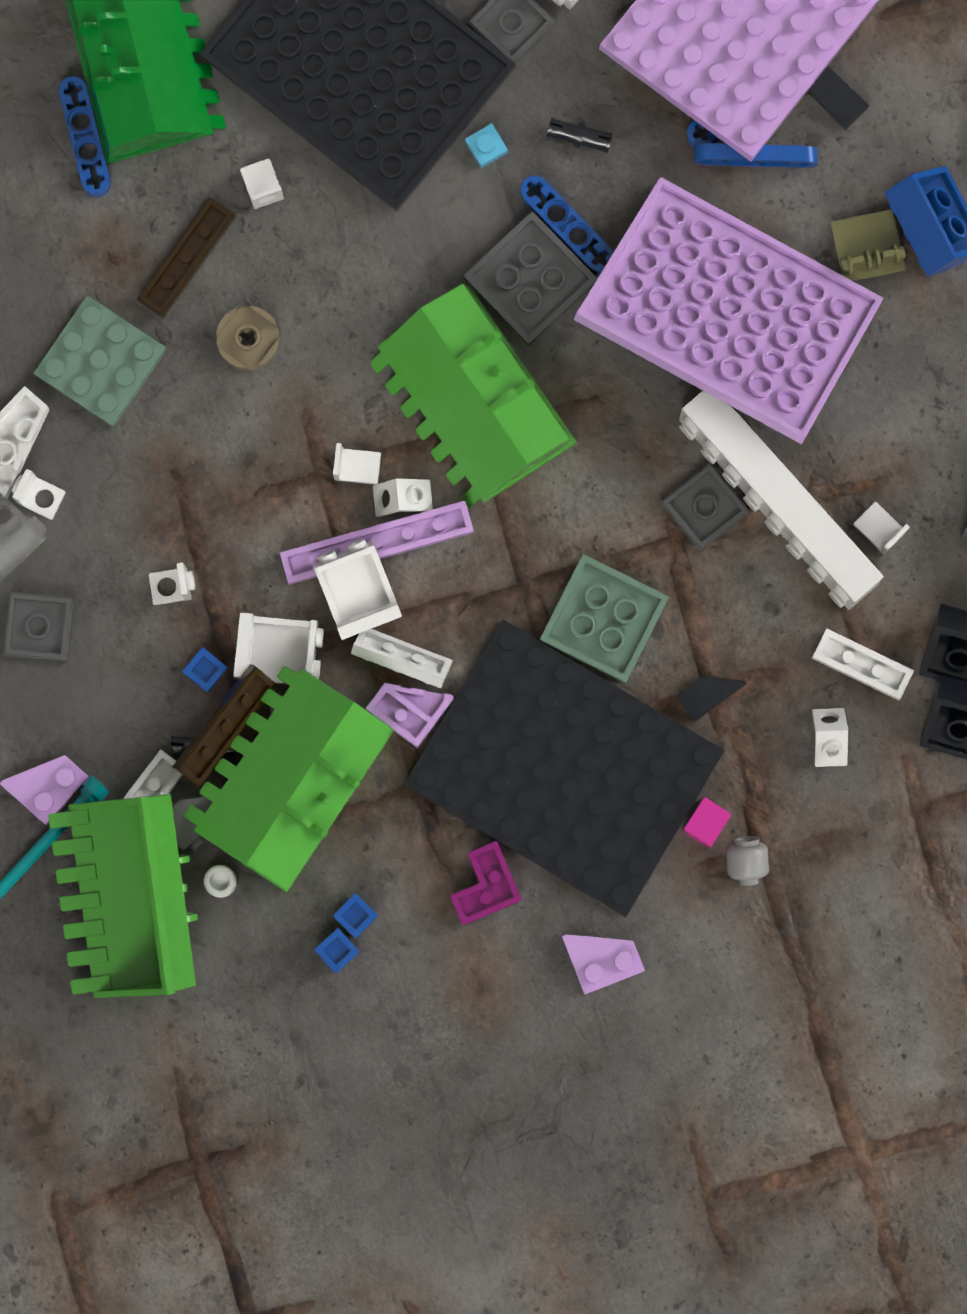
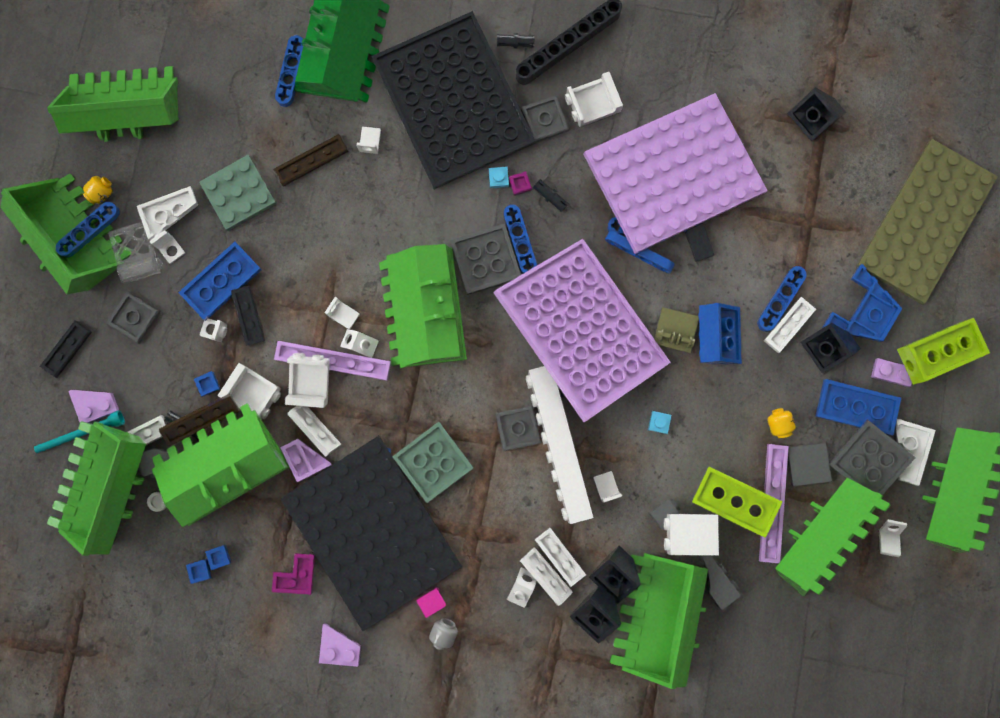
camera: 25 degrees right, 0 degrees up
(144, 507) = (214, 284): none -> blue plate
(214, 537) = (248, 315): none -> black tile
(246, 320) = (321, 207): dark tan plate -> none
(523, 139) = (520, 183): none -> magenta tile
(707, 694) = (468, 531): black slope -> none
(856, 702) = (546, 576): none -> white plate
(911, 395) = (659, 422): none -> medium azure plate

